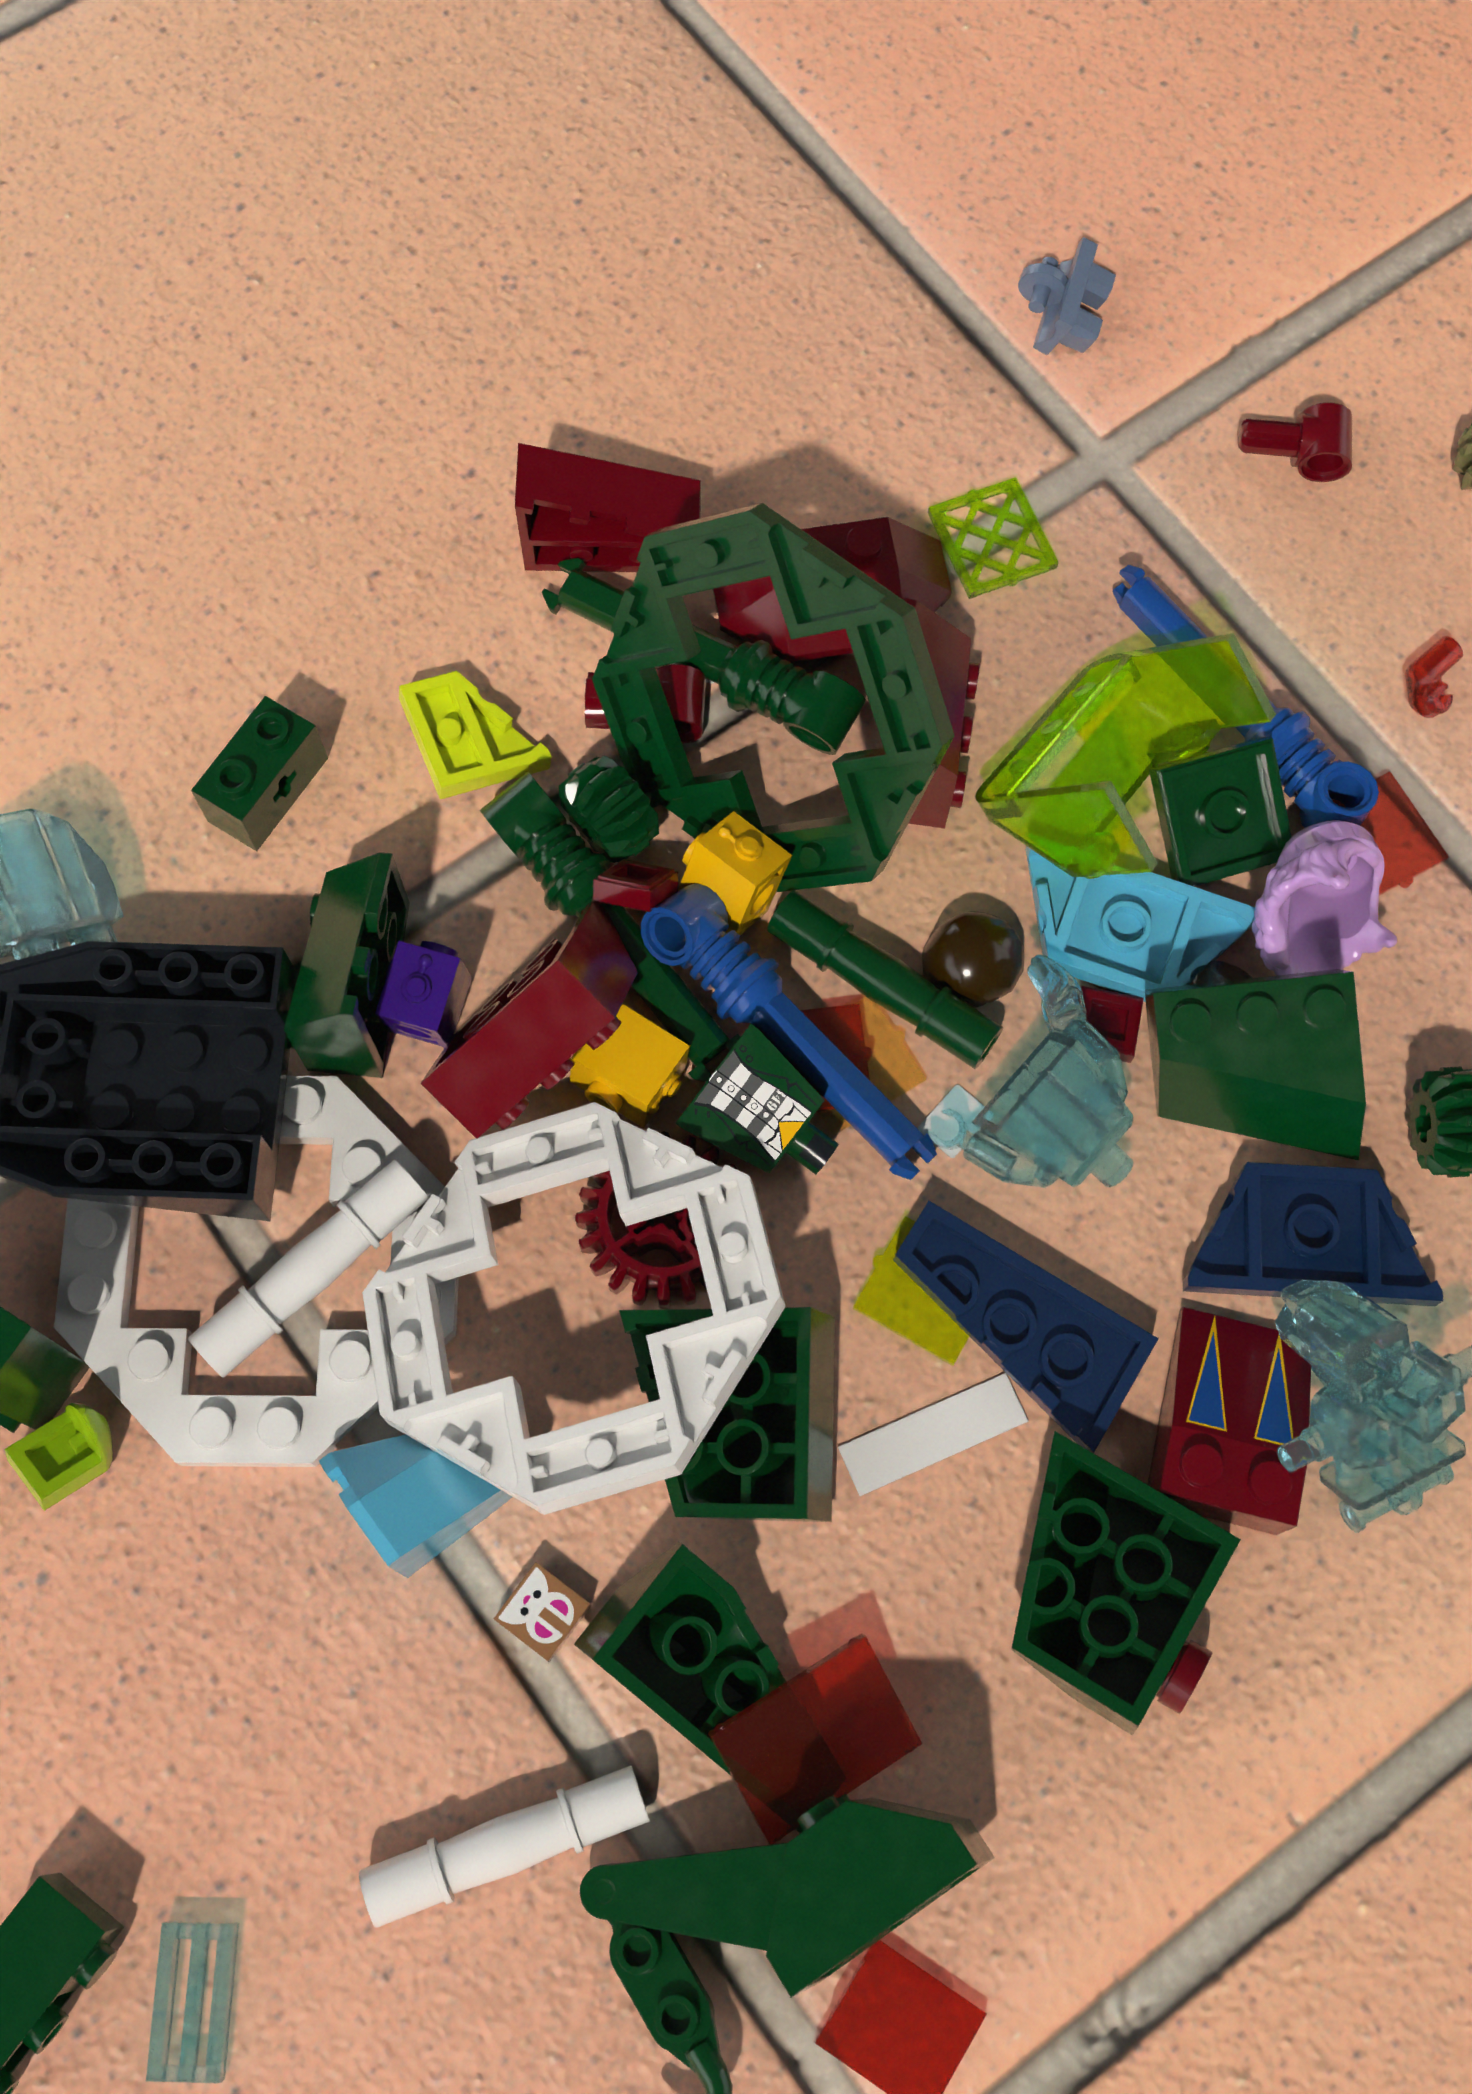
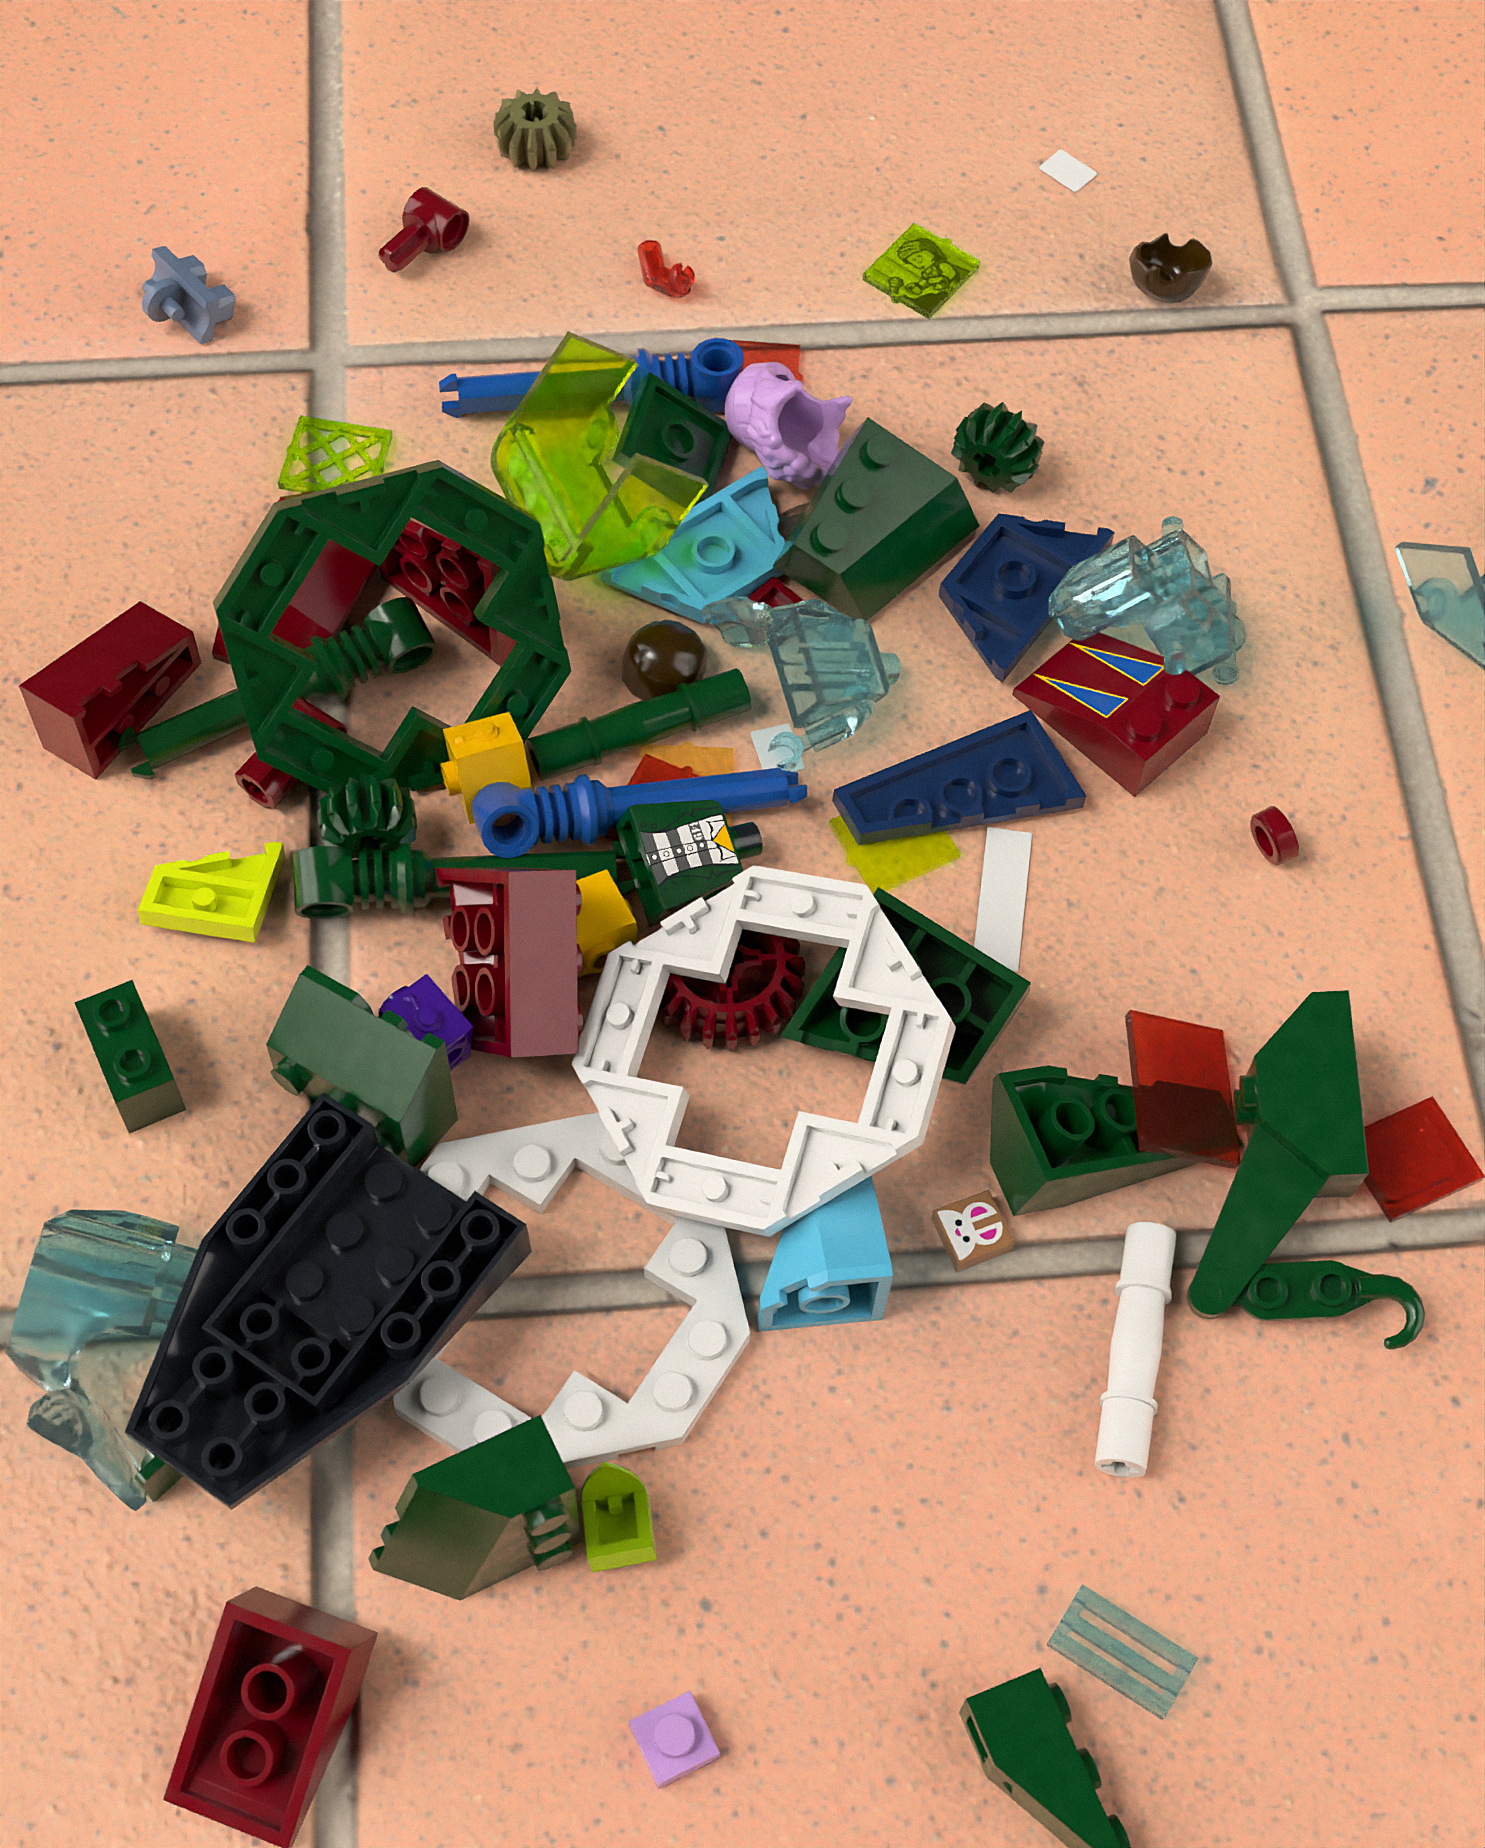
camera: 60 degrees left, 10 degrees down
(308, 1268) = (594, 1241): white piece -> none
(635, 885) = (449, 831): dark red tile -> none
(1113, 1583) = (1193, 830): dark green wedge -> none

